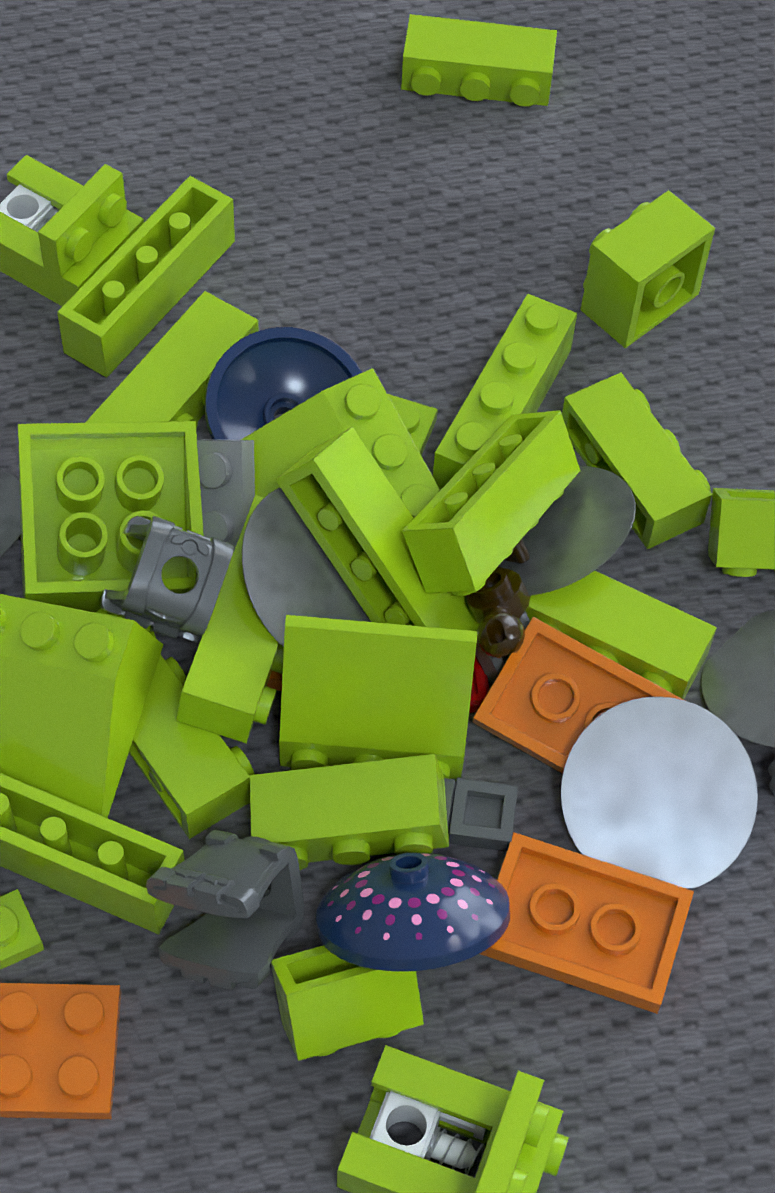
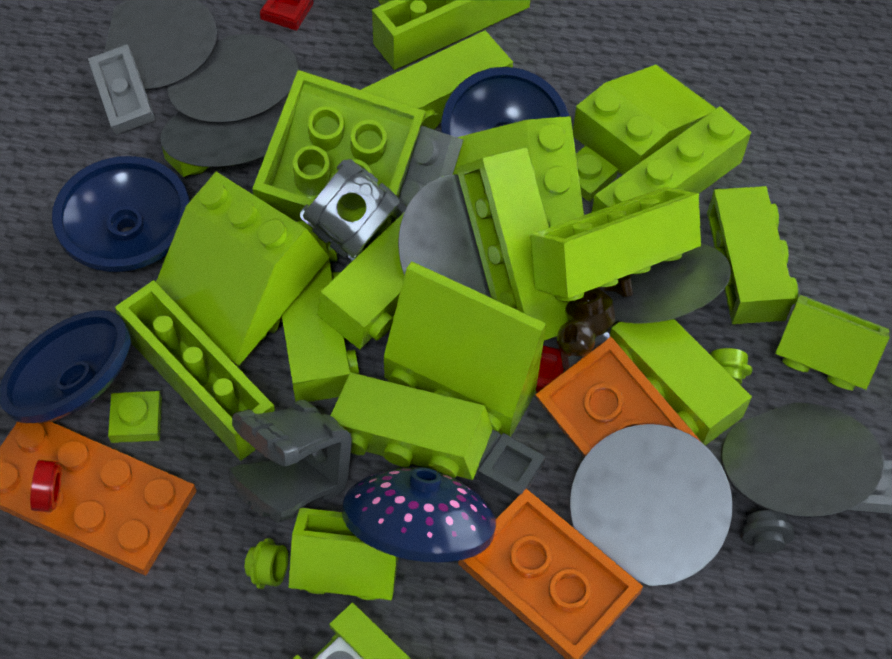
camera: 25 degrees right, 0 degrees up
(253, 1043) = (266, 563): none -> lime plate
(437, 338) = (636, 116): none -> lime slope
(646, 268) = (822, 118): lime brick -> none
(674, 593) = (734, 362): none -> lime plate

